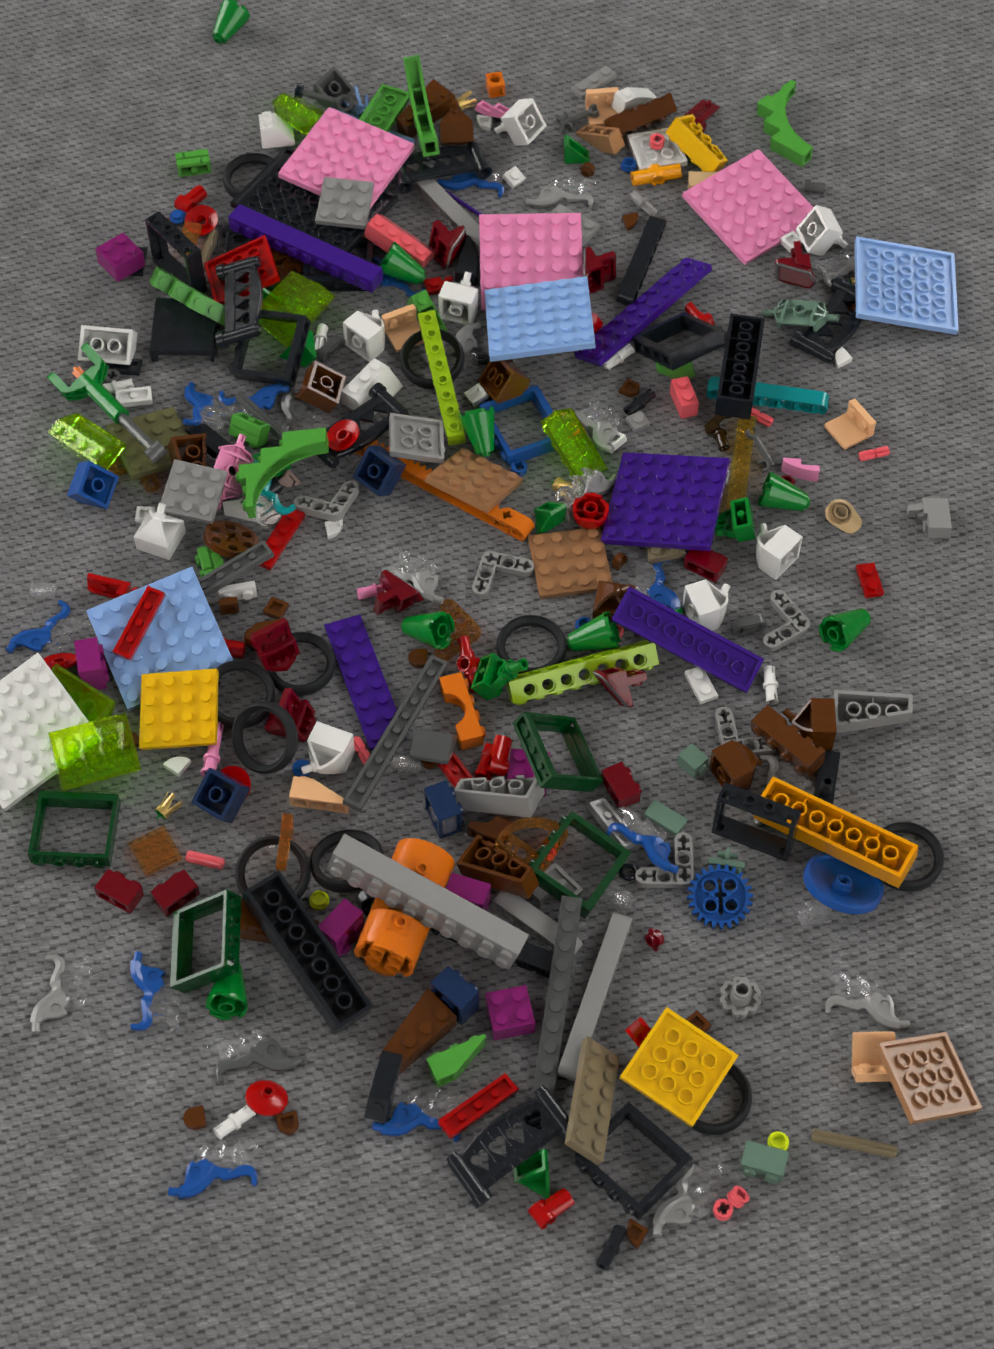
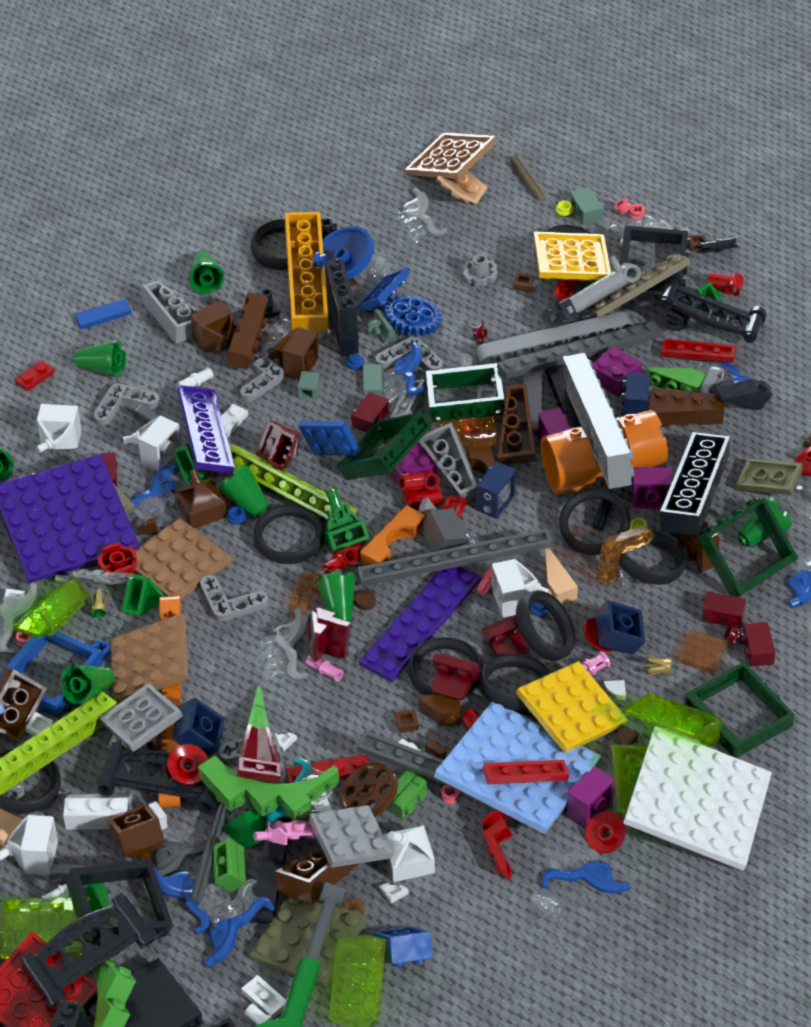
camera: 125 degrees left, 10 degrees down
(145, 878) = (732, 634): none -> dark red plate
(205, 859) = (677, 615): coral axle -> none
(276, 1039) = (769, 476): none -> olive plate
(307, 473) = (258, 754): none -> dark red plate
(331, 416) = (159, 813): none -> white plate
(426, 1081) = (712, 379): none -> light grey beam
(470, 754) = (425, 506): none -> light grey tile
(600, 717) = (329, 437): none -> blue plate
(614, 1017) = (569, 307): none -> light grey piece
(698, 818) = (355, 362): none -> blue plate
(737, 521) = (48, 455): green brick -> none
(770, 890) = (383, 290): none -> blue plate
(825, 831) = (319, 260): none -> blue bush
(898, 904) = (327, 226): none -> black gear
(910, 767) = (205, 273): none -> green cone
(914, 668) = (103, 314): none -> blue tile

